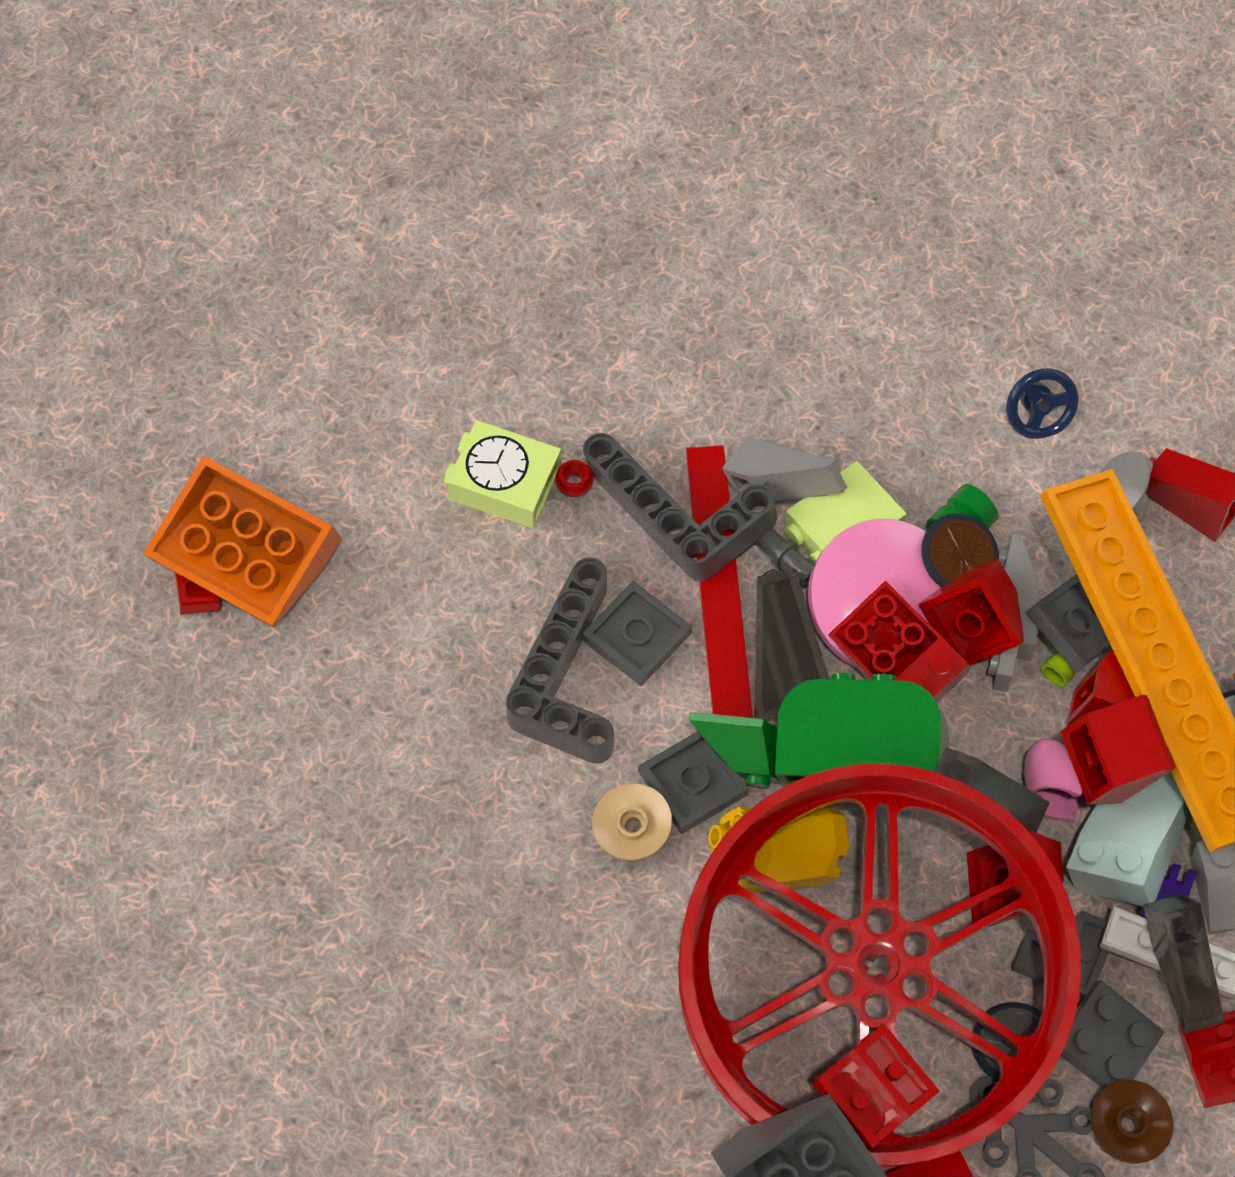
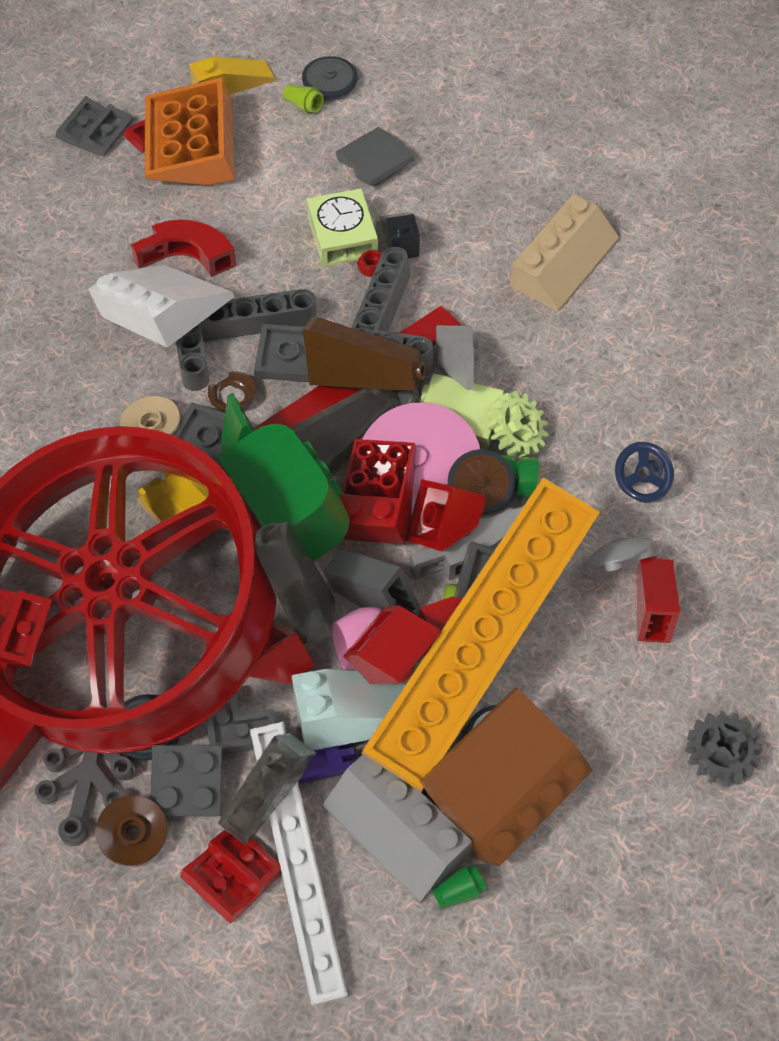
camera: 55 degrees right, 5 degrees down
(130, 638) = (93, 126): none -> dark grey slope
(175, 450) = (236, 72): none -> yellow slope
(260, 349) = (331, 76): none -> dark grey wheel
(273, 394) = (303, 97): none -> lime cone
(404, 630) = (186, 239): none -> red arch
(421, 378) = (375, 156): none -> dark grey slope
(484, 714) = (157, 301): none -> white slope
(556, 421) = (402, 232): none -> black slope
(650, 700) = (237, 380): none -> reddish brown piece
(707, 290) = (563, 253): none -> tan slope
(729, 566) = (358, 359): none -> reddish brown slope
(904, 476) = (517, 424): none -> yellowish green gear
(1005, 729) = (370, 582): none -> dark grey slope

